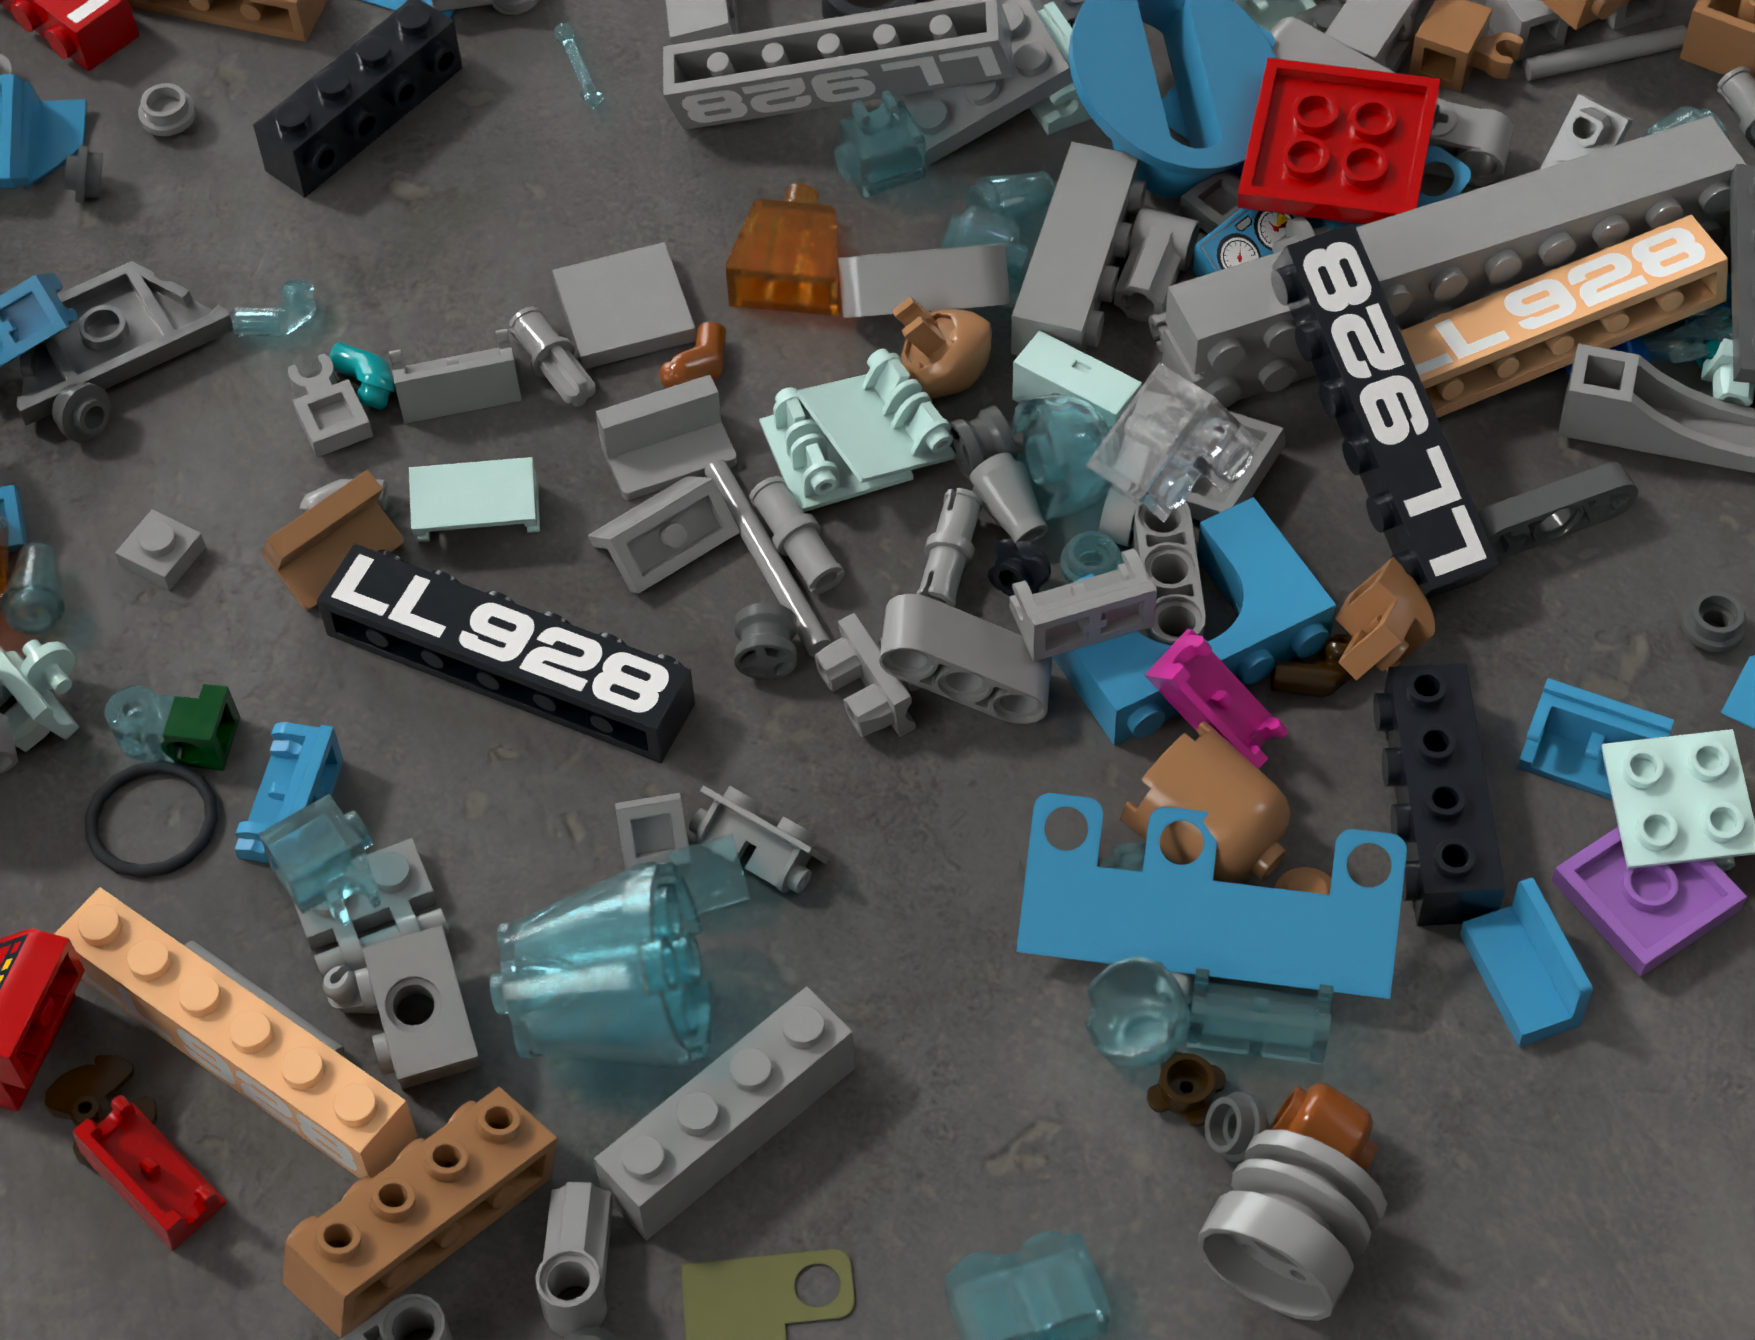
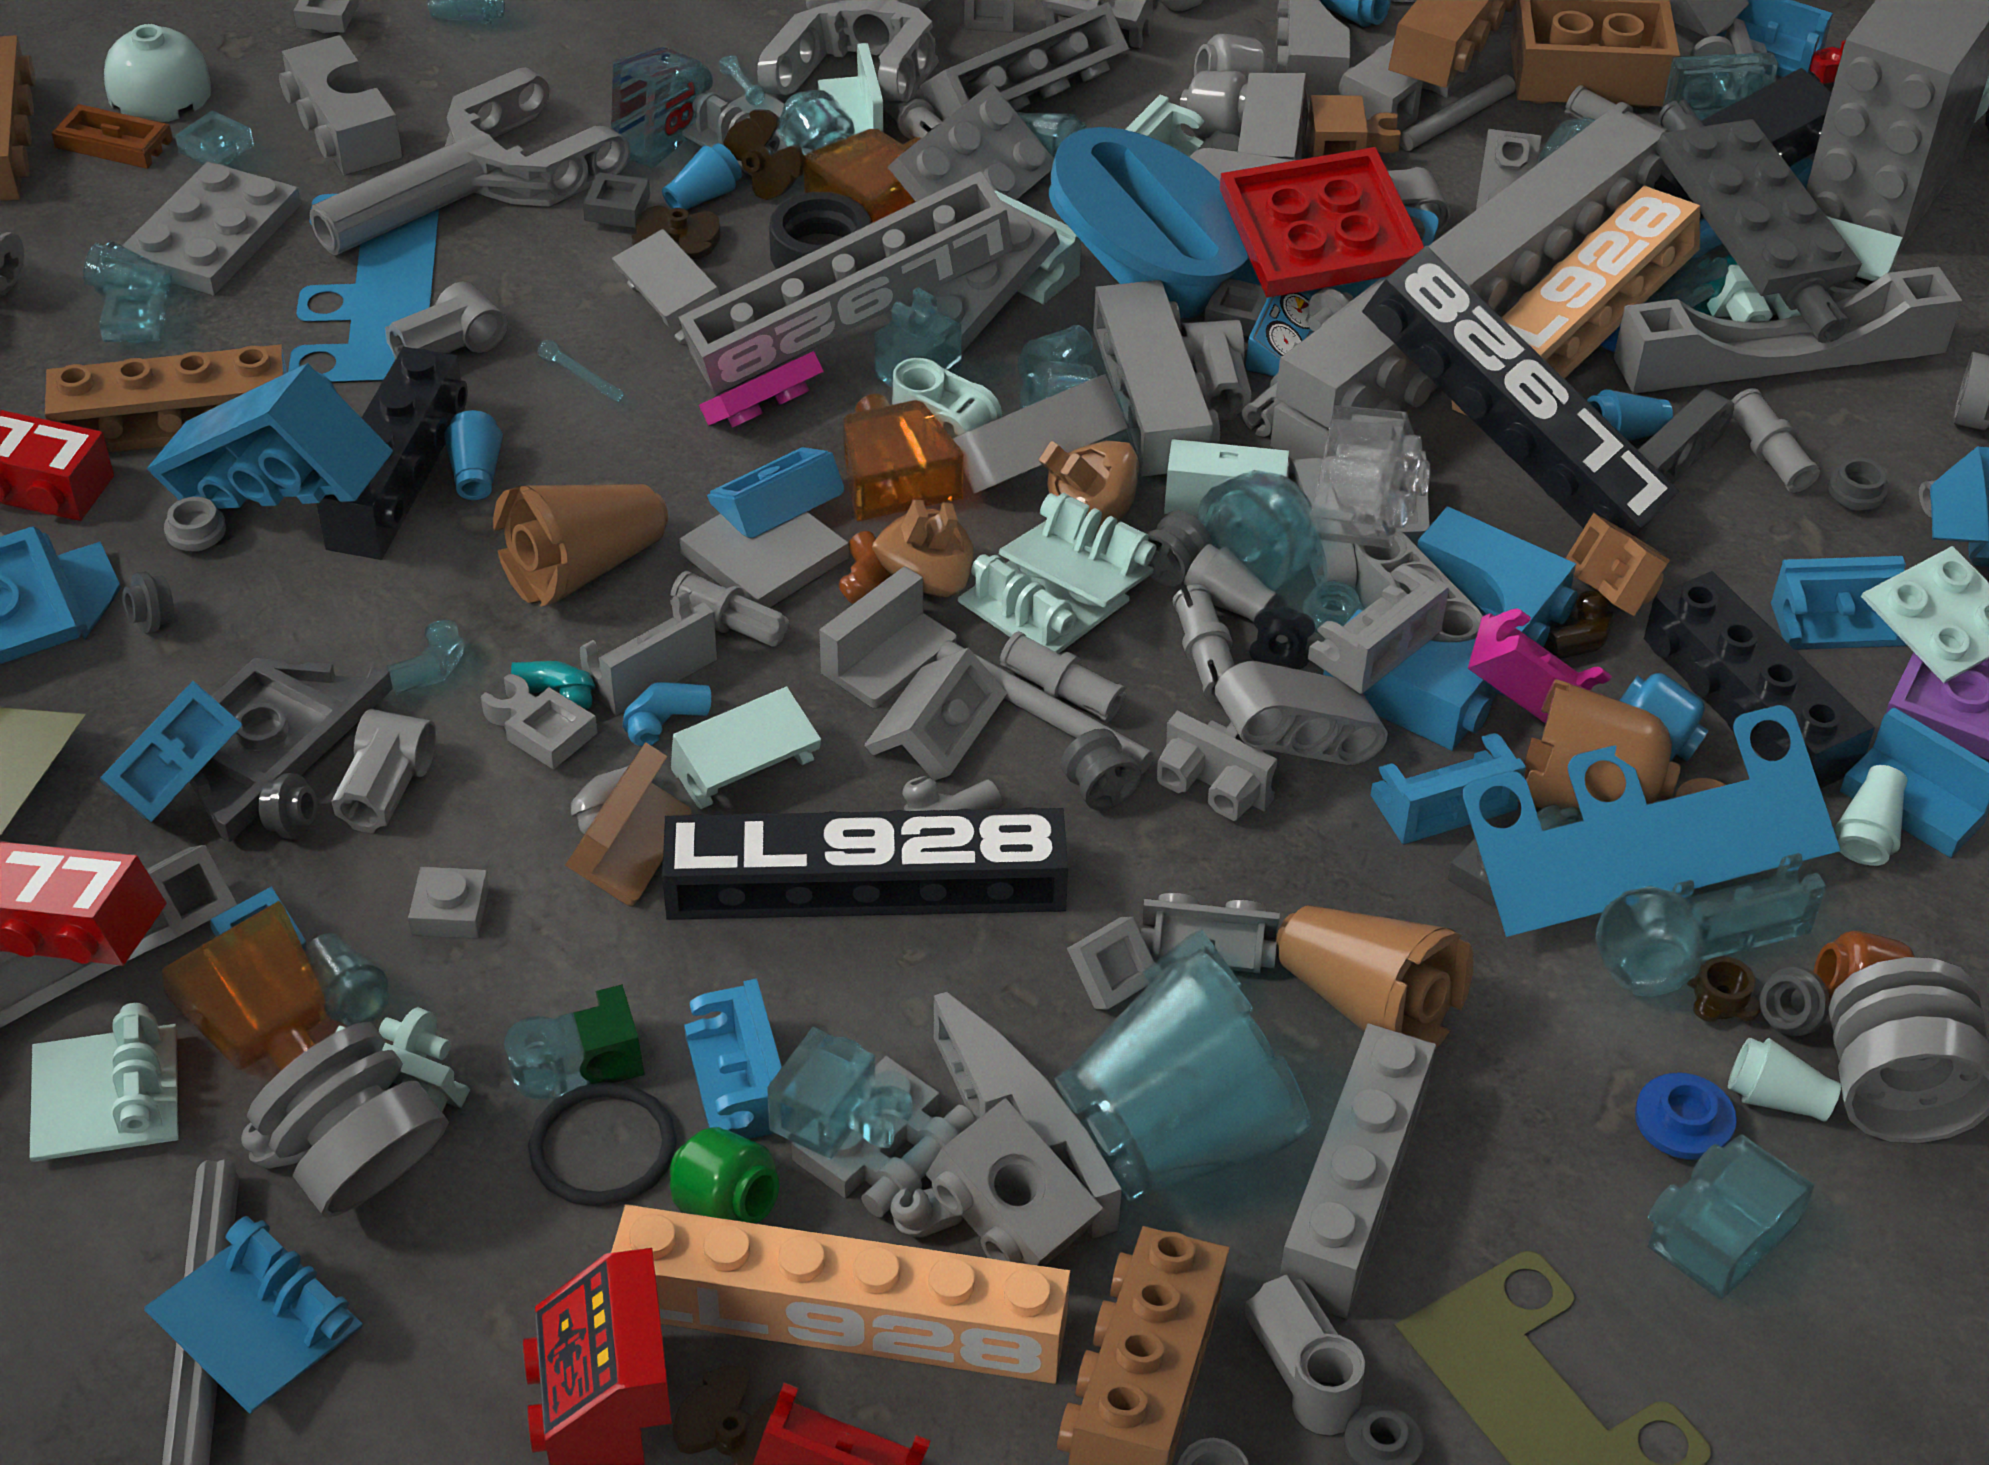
camera: 30 degrees left, 10 degrees down
(187, 391) = (386, 756): none -> light grey piece
(209, 894) = (724, 1177): none -> green head
(238, 68) = (272, 445): none -> dark azure wedge
(431, 119) = (473, 451): none -> dark azure cone
(433, 429) = (657, 703): none -> dark azure arm
(461, 236) = (573, 534): none -> medium nougat cone
(472, 918) = (992, 1069): none -> light grey slope
(602, 616) = (923, 796): none -> light grey arm
(662, 254) = (778, 491): none -> dark azure slope
(742, 140) = (743, 401): none -> dark pink plate
(746, 363) = (929, 545): none -> medium nougat piece
(866, 212) = (945, 395): none -> light aqua piece
(868, 945) = (1379, 968): none -> medium nougat cone
(1031, 776) = (1434, 799): none -> dark azure hinge
(1063, 1189) = (1684, 1115): none -> blue piece
(1167, 1195) = (1781, 1081): none -> light aqua cone
(1318, 792) = (1675, 707): none -> dark azure head
(1451, 978) = (1873, 820): none -> light aqua cone
(1522, 460) = (1632, 414): none -> dark azure cone
(1659, 540) = (1774, 441): none -> light grey pin

